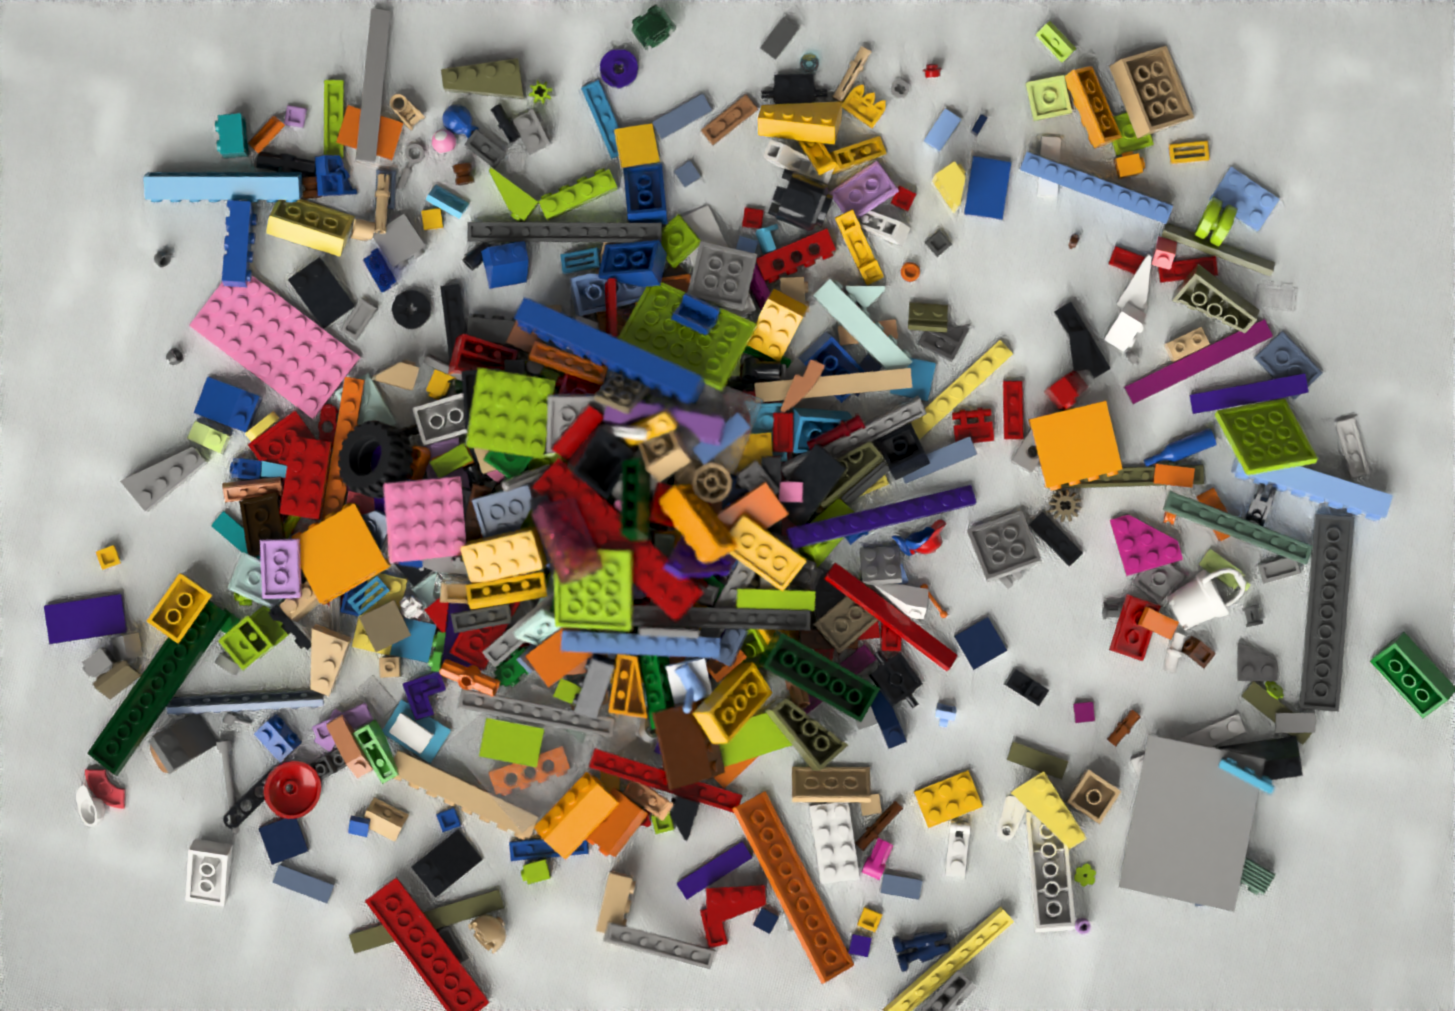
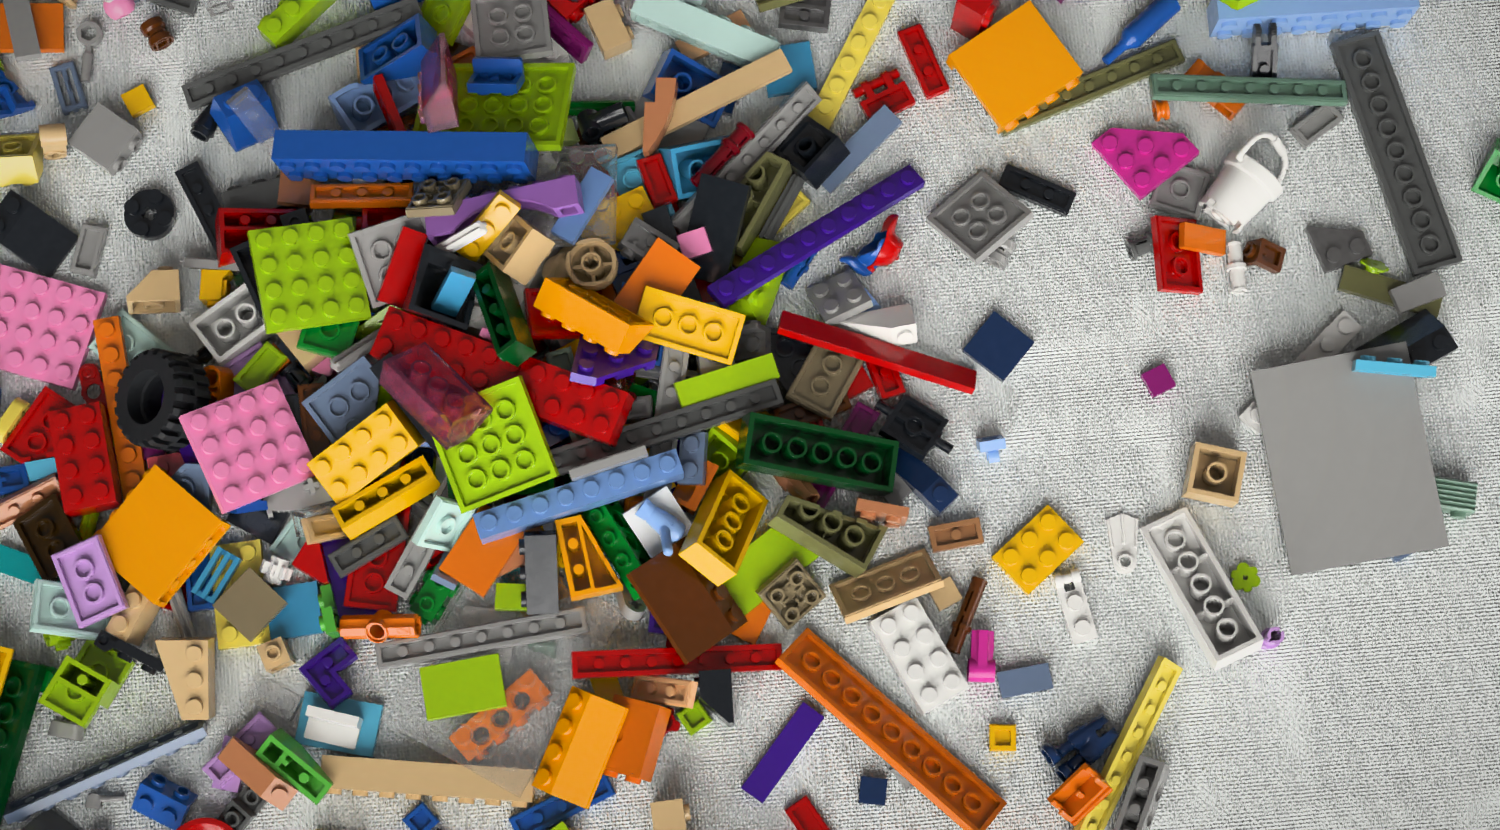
camera: 20 degrees left, 10 degrees down
(380, 270) = (94, 181): clear blue bracket -> none
(382, 195) = (64, 91): tan pin -> none
(447, 201) = (149, 72): medium azure plate -> none
(514, 275) = (254, 118): none -> clear tile
(518, 202) = (232, 39): lime slope -> none
(596, 258) = (338, 82): dark azure tile -> none
(607, 467) = (453, 291): none -> dark azure tile
(651, 312) = (438, 88): none -> clear pink slope
(730, 902) = (820, 781): red wedge -> none
(762, 763) = (790, 593): none -> dark tan tile
(777, 324) = (600, 61): yellow brick -> none
(840, 729) = (890, 514): none -> nougat plate
(860, 945) = (1003, 775): dark purple tile -> none
(894, 767) = (955, 535): none -> medium nougat plate
(906, 980) = (1080, 794): none -> orange hinge
(943, 614) = (939, 329): orange hinge -> none
(1022, 457) = (958, 110): light grey brick -> none
(1026, 687) = (1075, 377): black slope -> none
(1037, 760) = (1126, 460): olive tile -> none
(1047, 805) = (1165, 506): light yellow wedge -> none
(1065, 512) = (1041, 147): dark tan gear -> none
(1123, 727) = (1214, 380): dark orange pin -> none
(1173, 475) = (1145, 62): orange tile -> none
(1212, 562) = (1260, 151): yellowish green hinge -> none
(1250, 622) = (1310, 188): dark grey bush -> none

